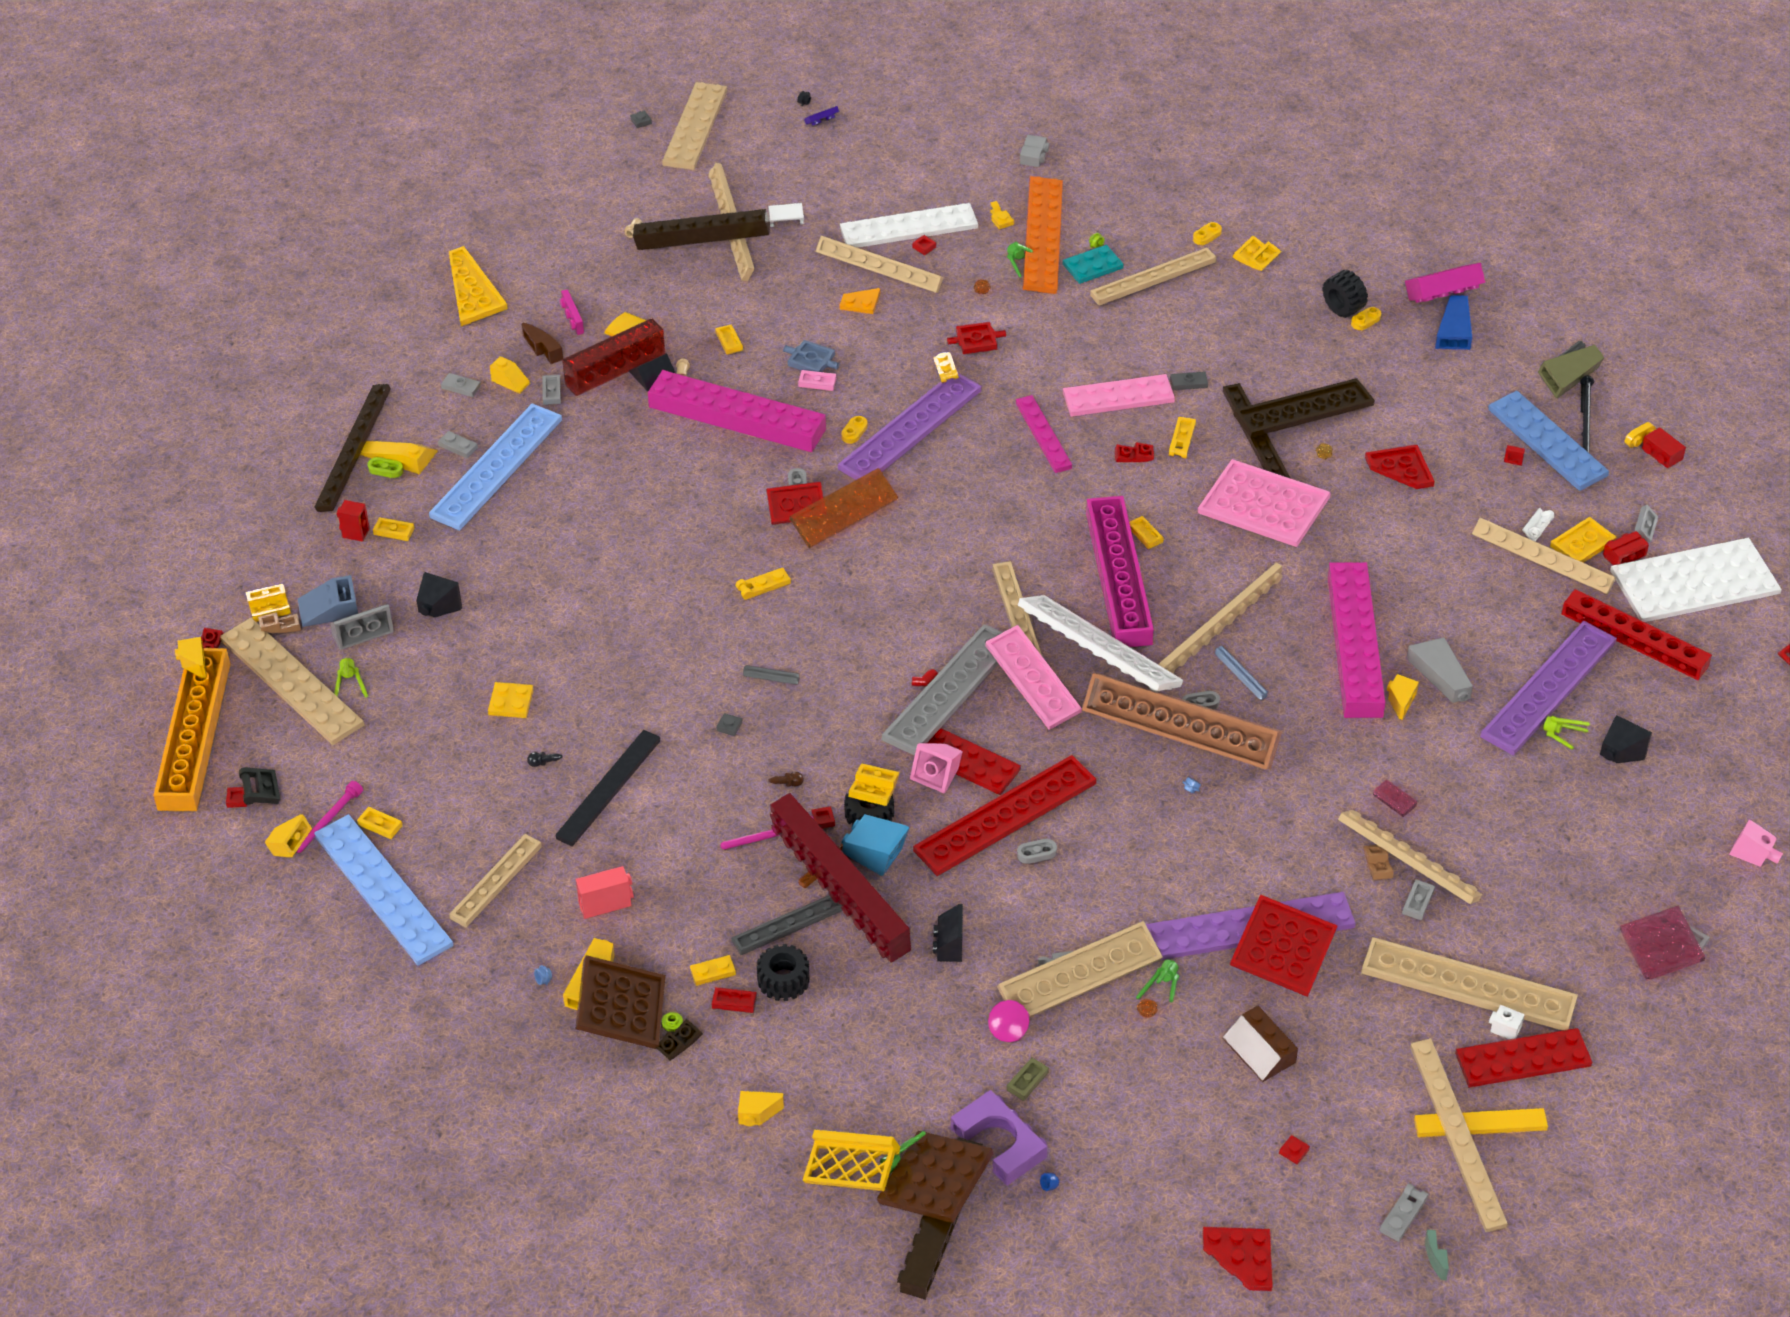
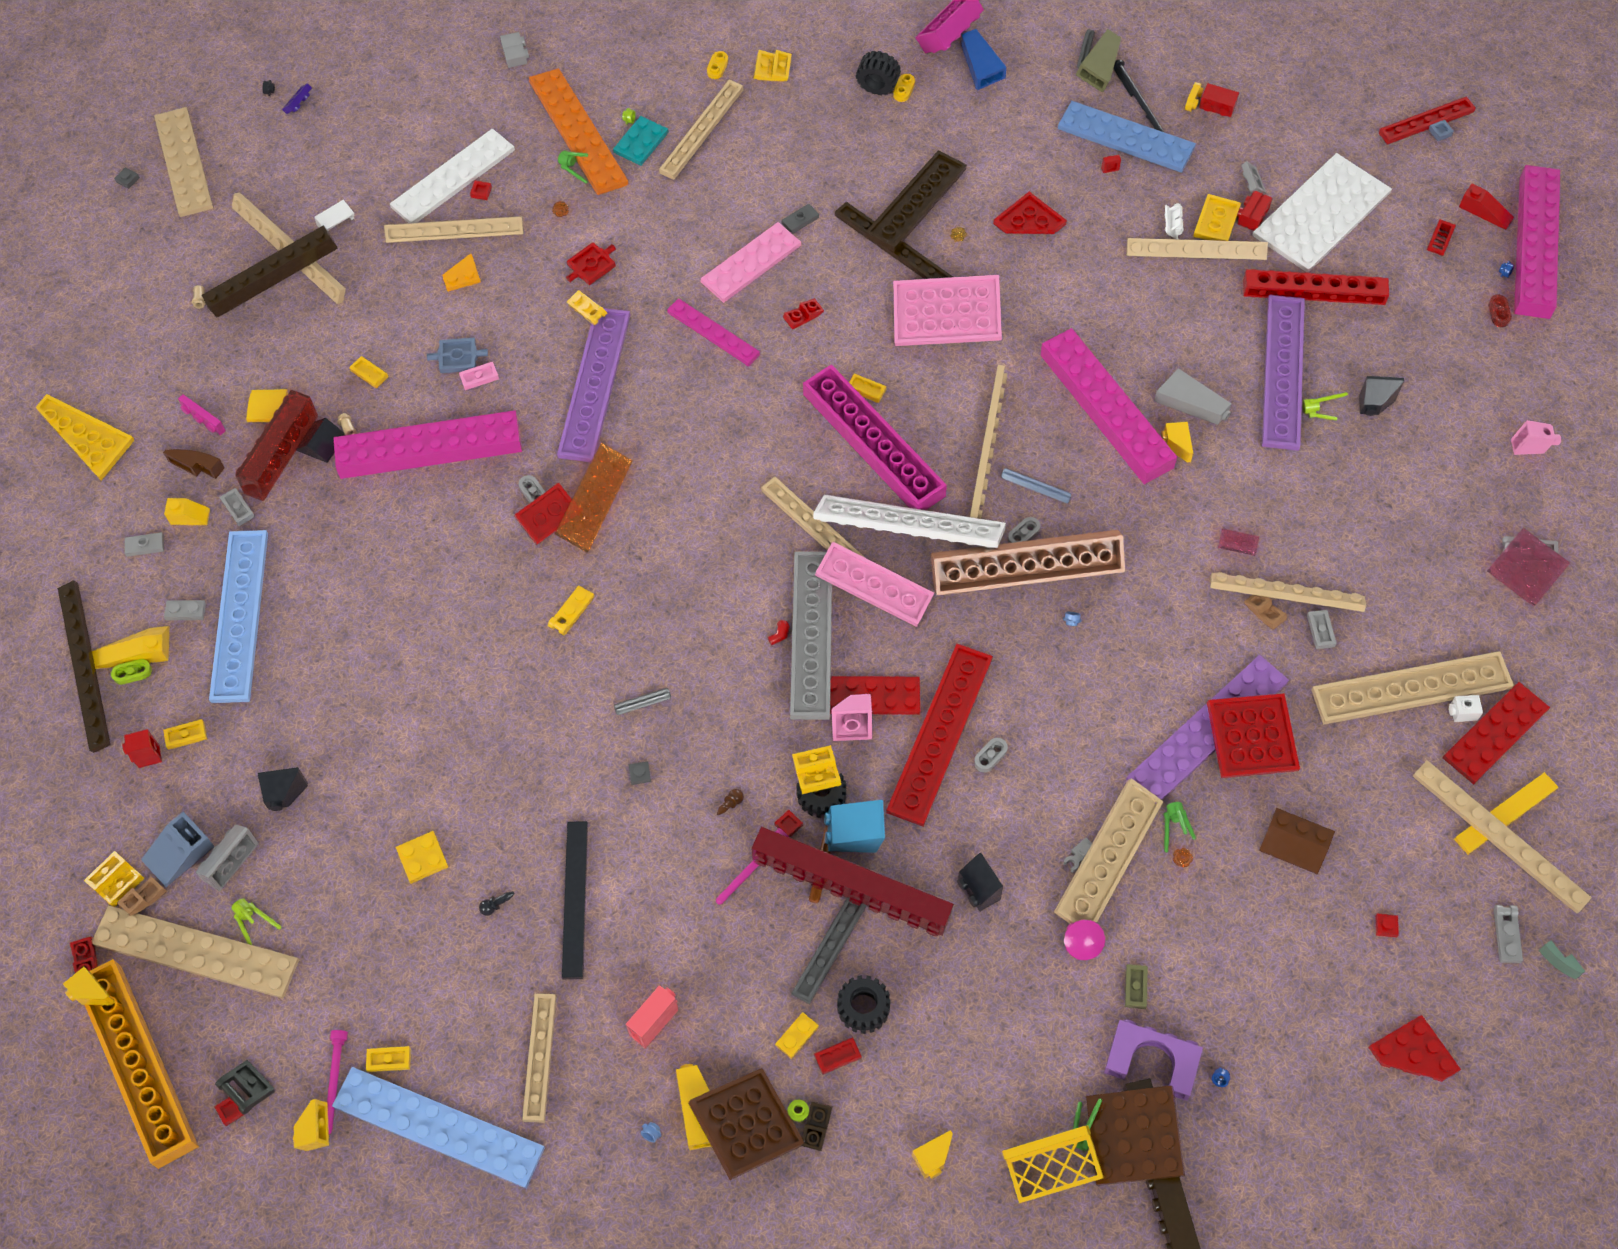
camera: 30 degrees left, 15 degrees up
(854, 429) = (545, 408): yellow plate -> none
(1000, 218) = (528, 131): yellow plate -> none
(1182, 437) = (833, 277): yellow plate -> none

